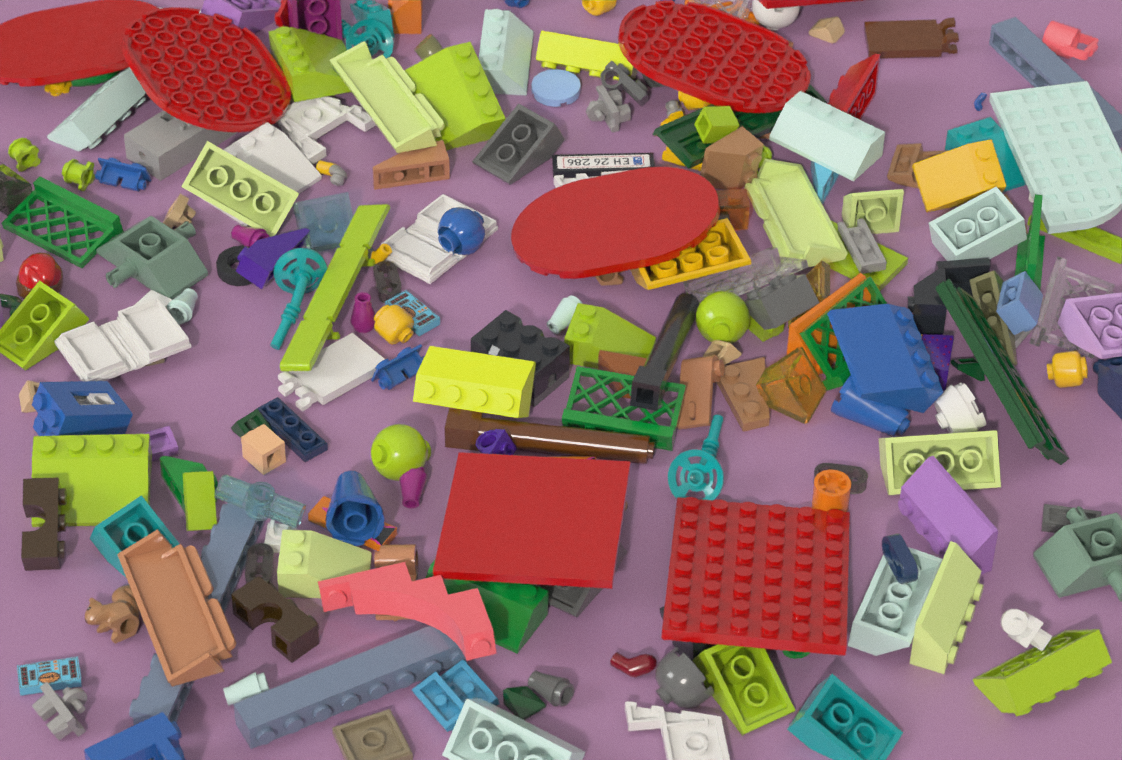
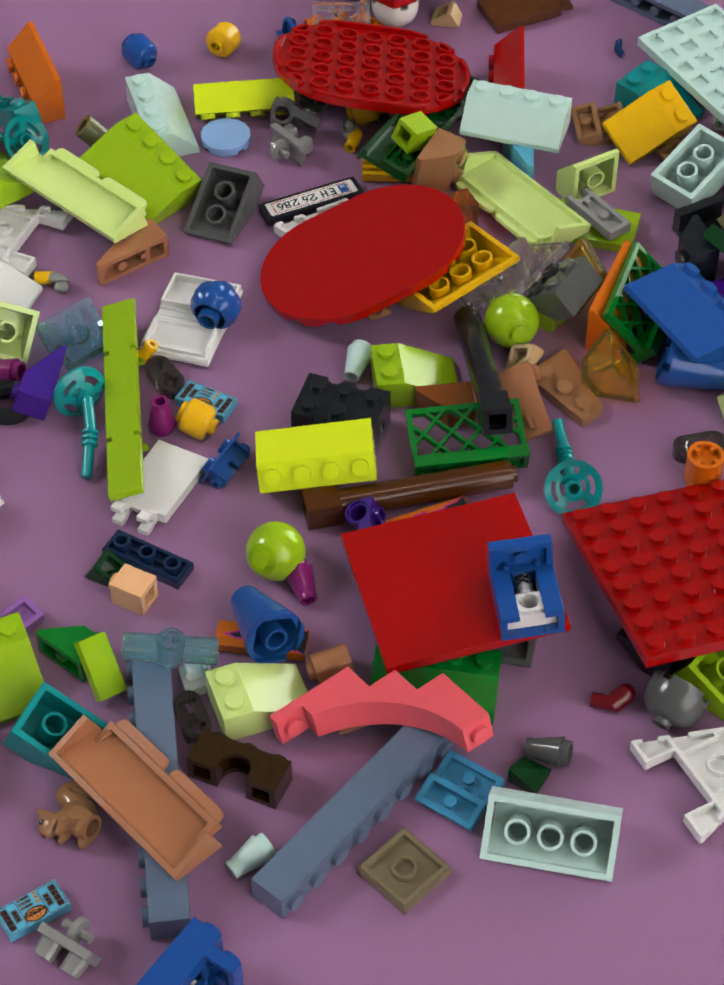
camera: 20 degrees left, 5 degrees up
(583, 536) = (523, 567): none -> blue brick

